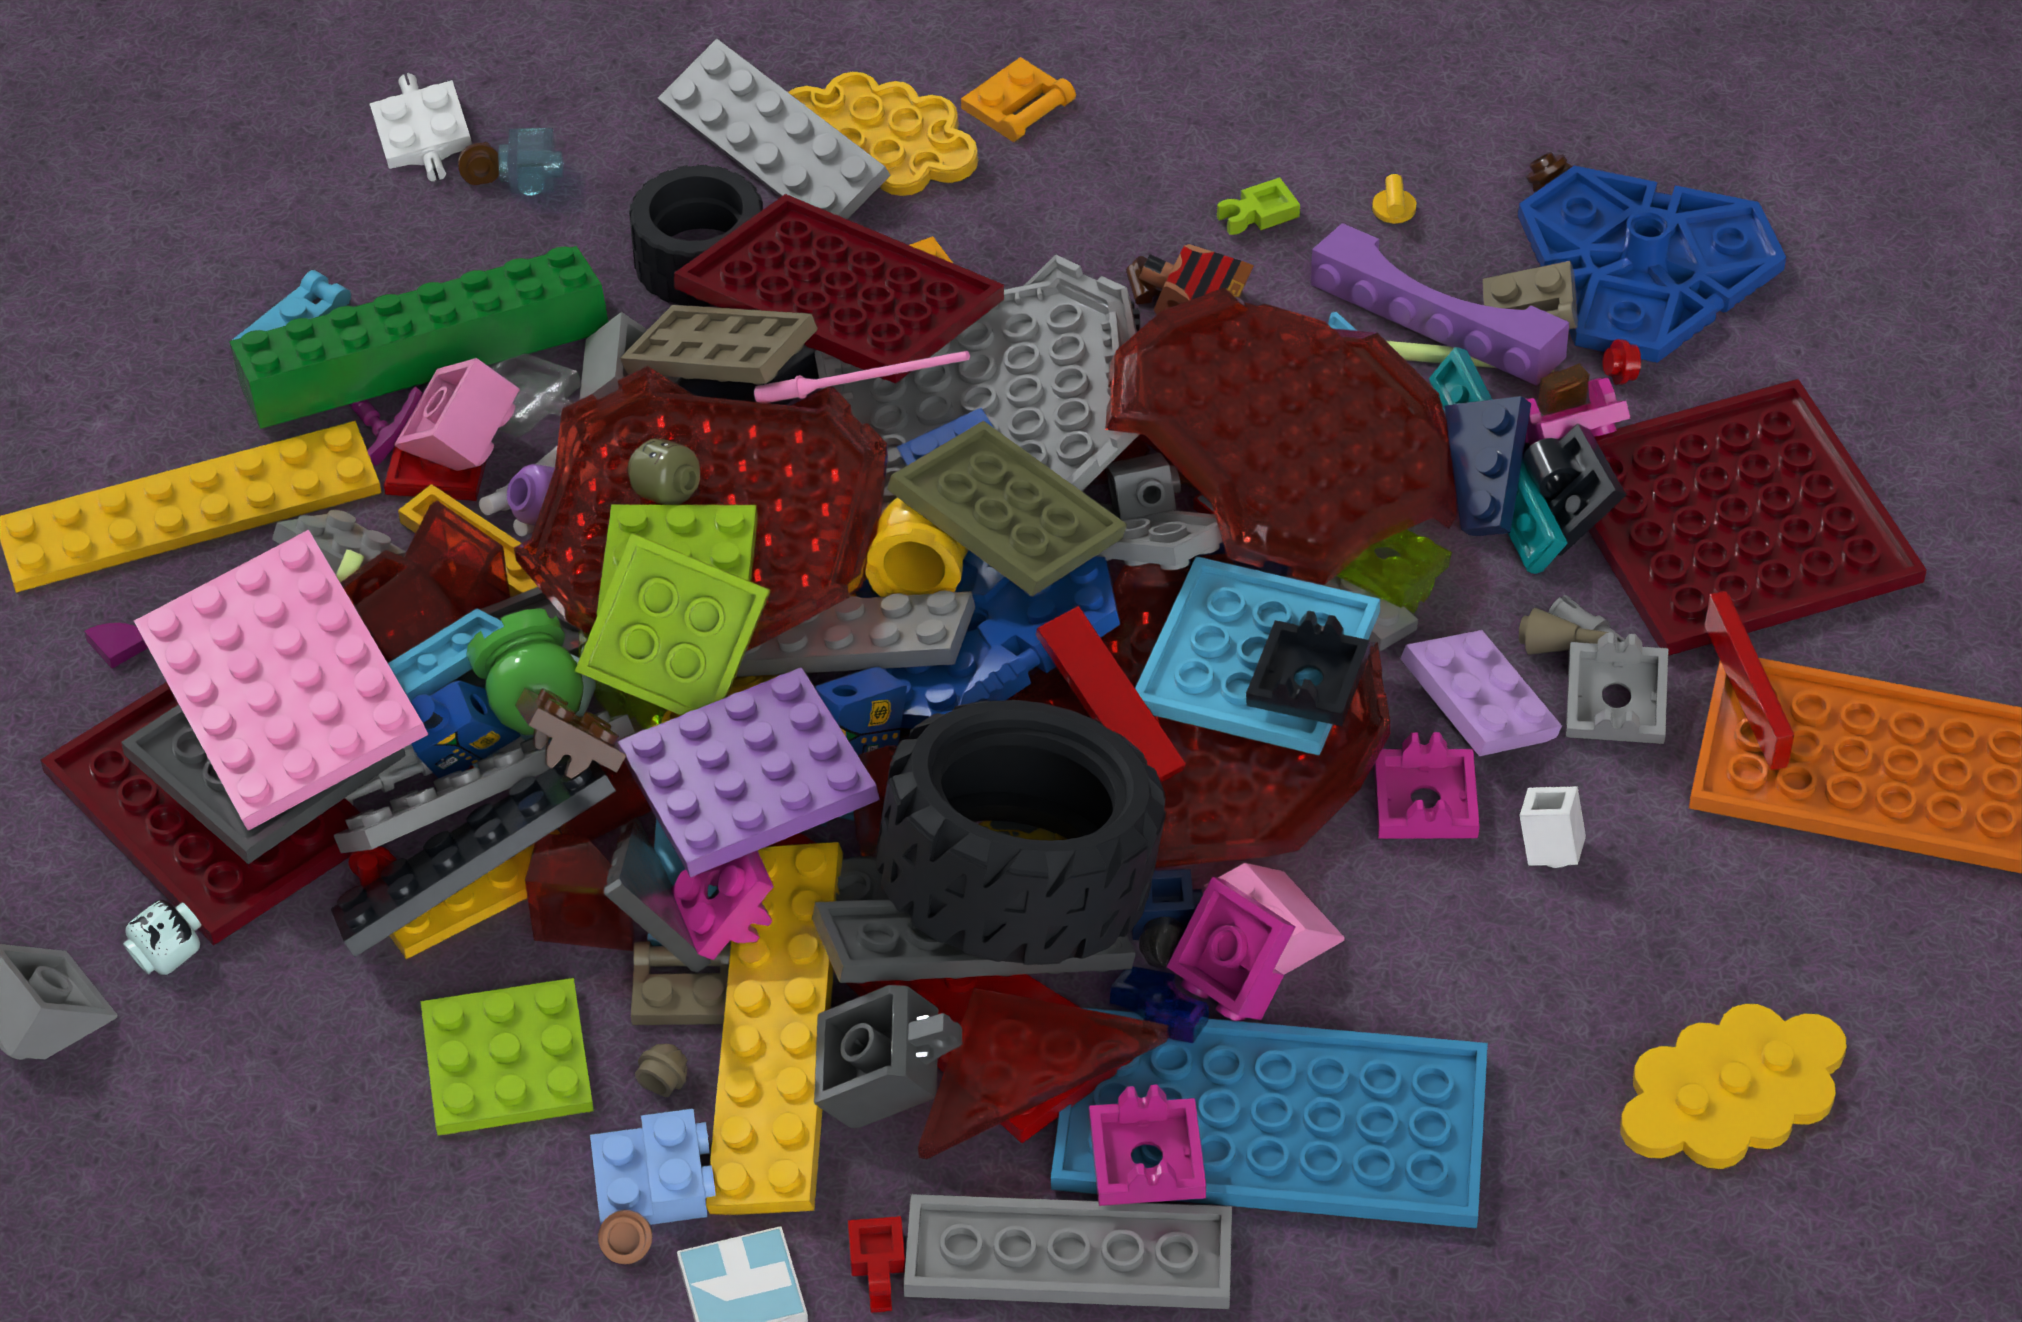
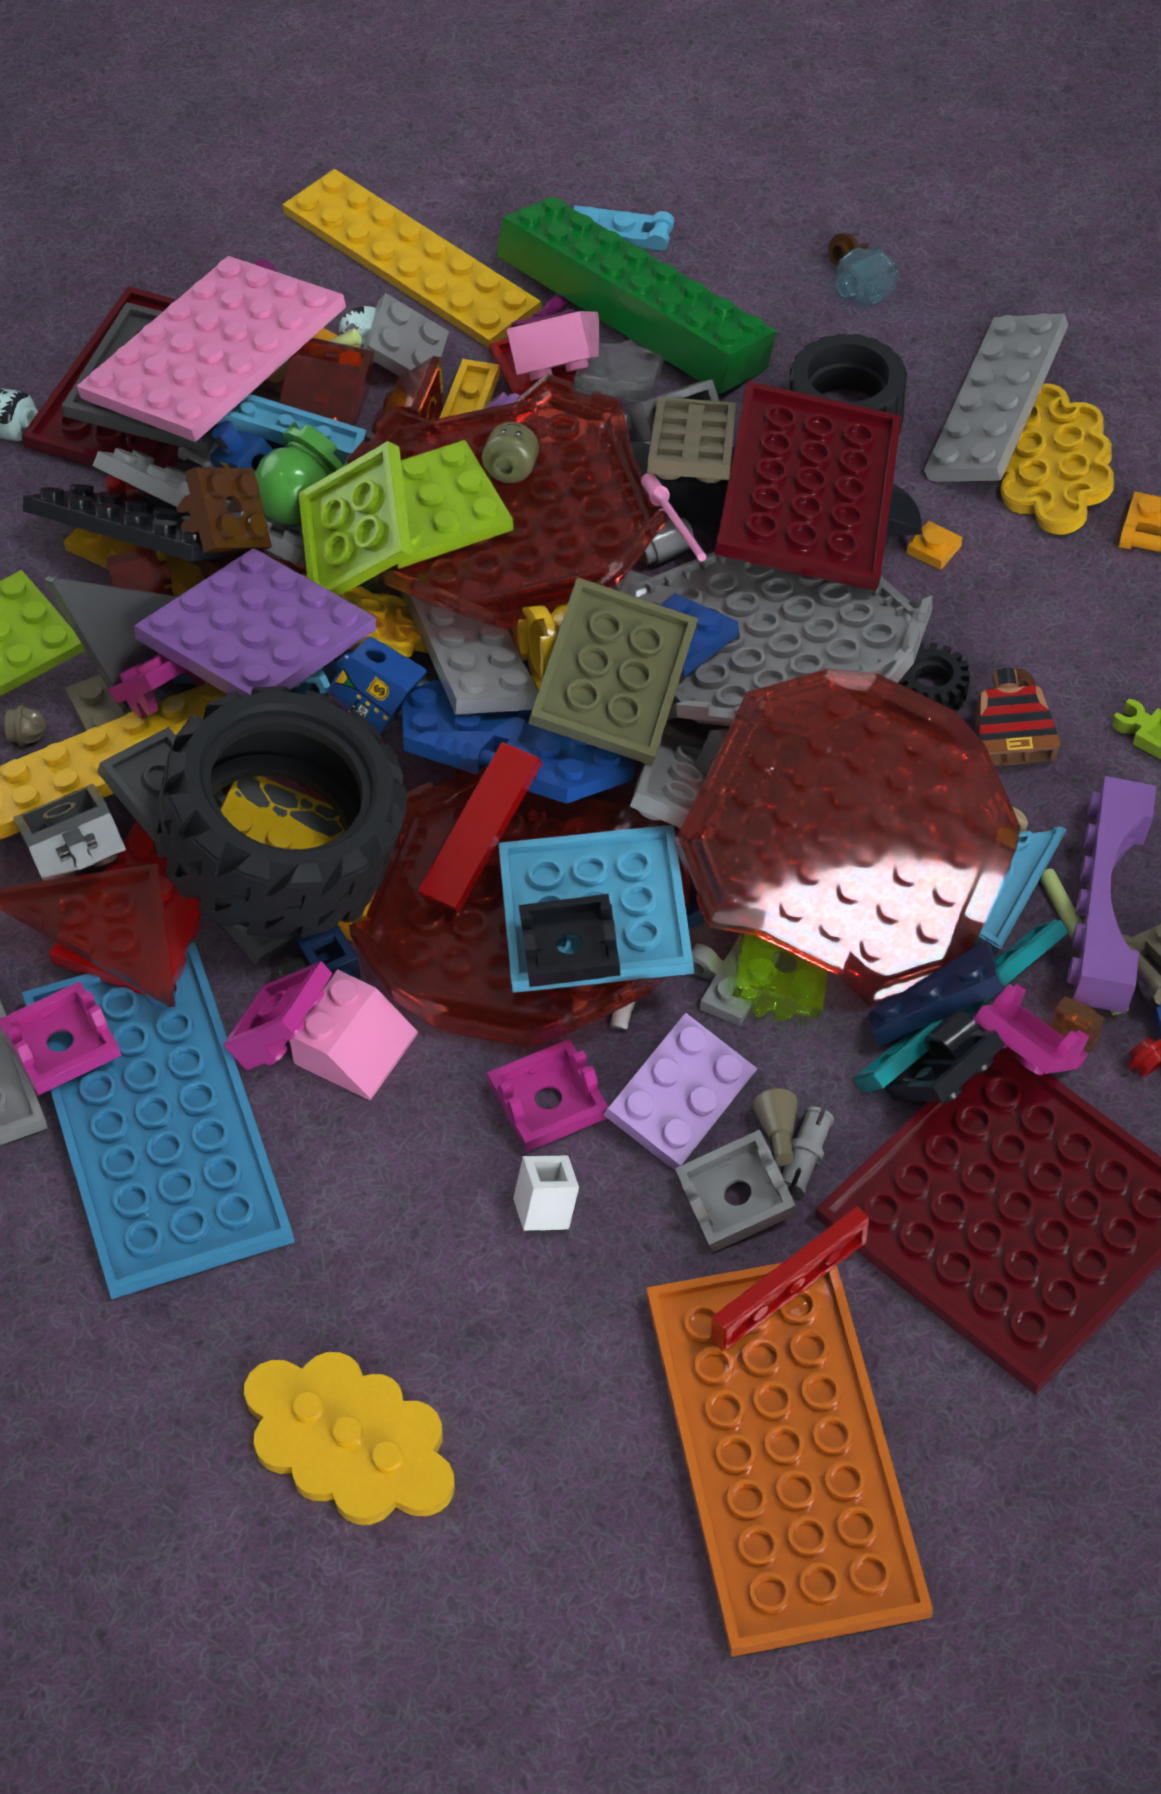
camera: 65 degrees right, 5 degrees up
(421, 126) = (866, 206): white plate -> none
(1159, 1001) = (207, 1001): clear blue tile -> none

